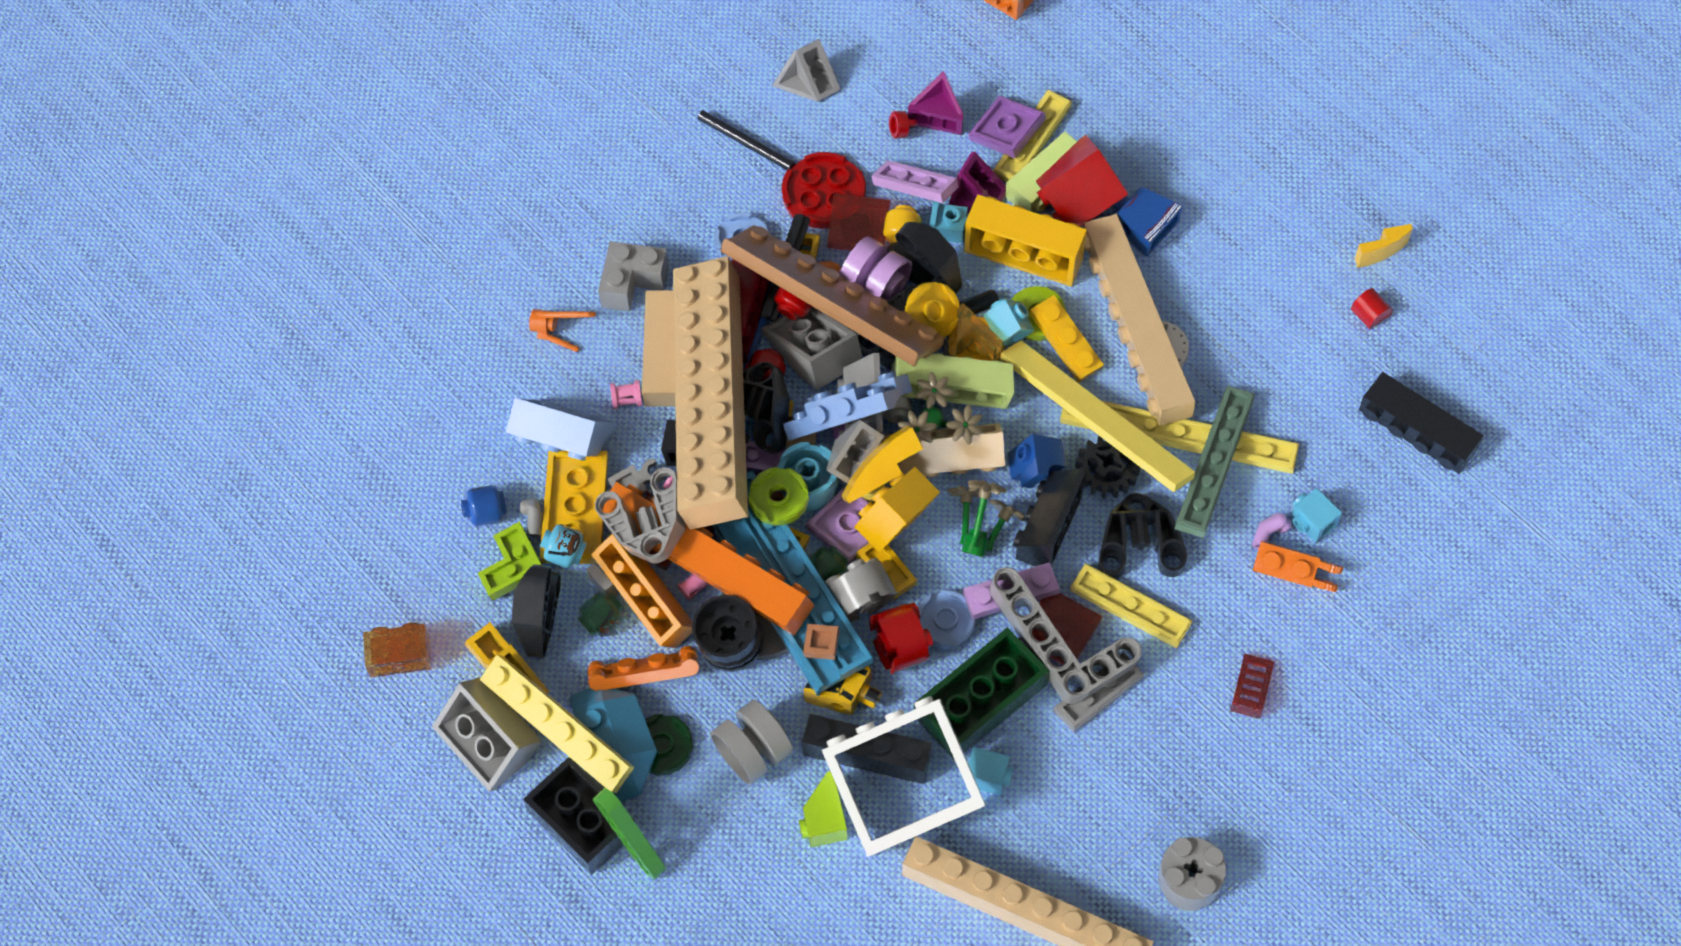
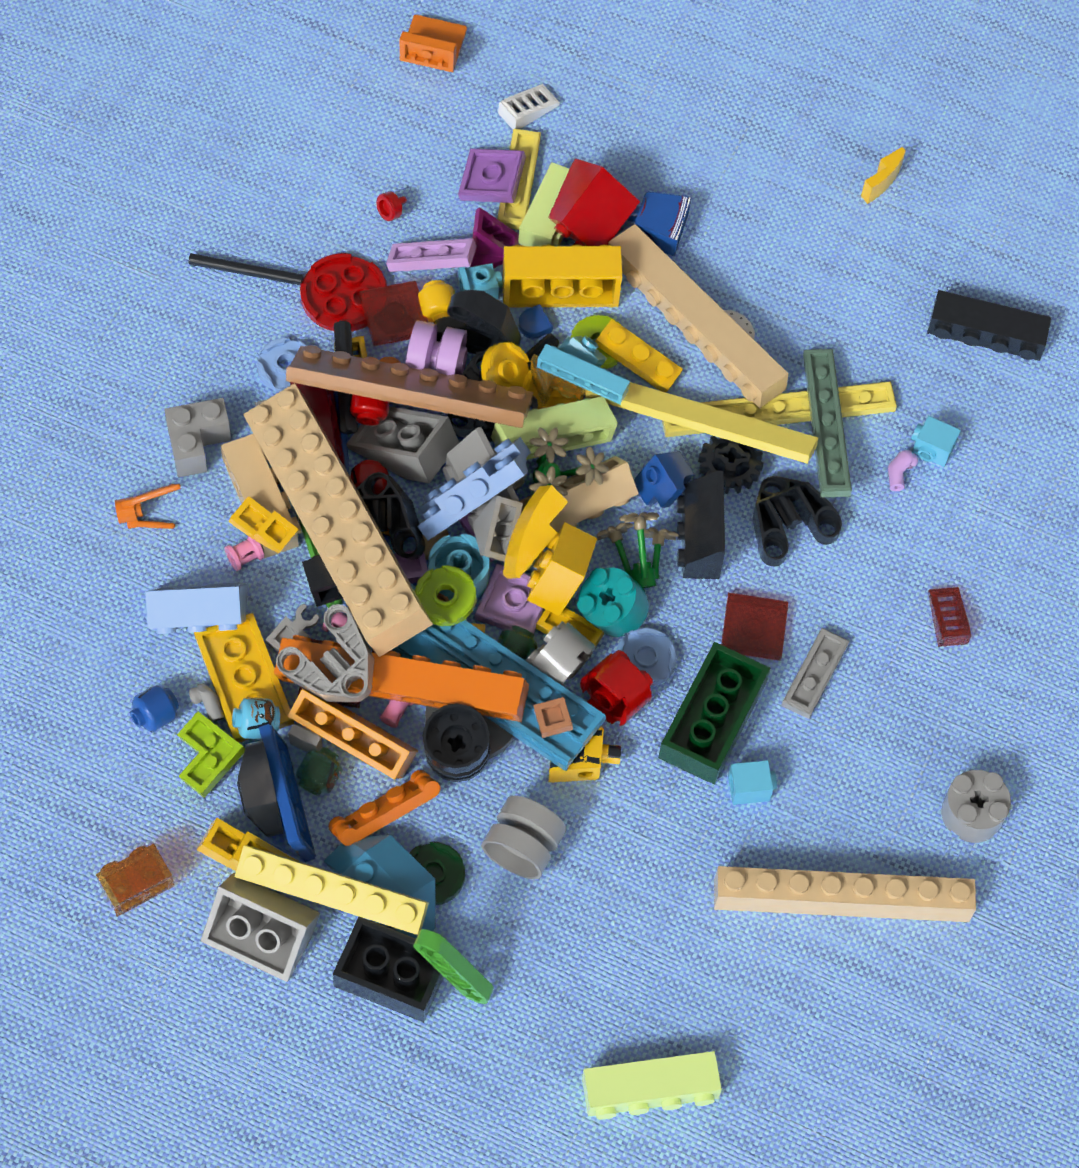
camera: 30 degrees left, 0 degrees up
(560, 623) = (287, 793): none -> blue tile
(647, 375) = (262, 526): none -> yellow slope
(808, 73) = (279, 185): light grey slope -> none
(823, 815) = (621, 881): lime slope -> none
(868, 732) = (730, 843): white window -> none
(885, 754) = (631, 803): black brick -> none
(933, 556) = (613, 601): none -> teal brick
(937, 107) = (421, 177): magenta slope -> none
(984, 275) = (534, 322): none -> blue tile
(998, 336) = (583, 374): none -> medium azure piece
(1038, 579) = (696, 608): lavender plate -> none
(1055, 645) = (761, 639): light grey beam -> none
(1065, 82) = (526, 116): none -> white slope
(1131, 605) = (808, 583): light yellow tile -> none
(1294, 566) = (936, 494): orange hinge -> none
(1371, 308) = (898, 236): red brick -> none

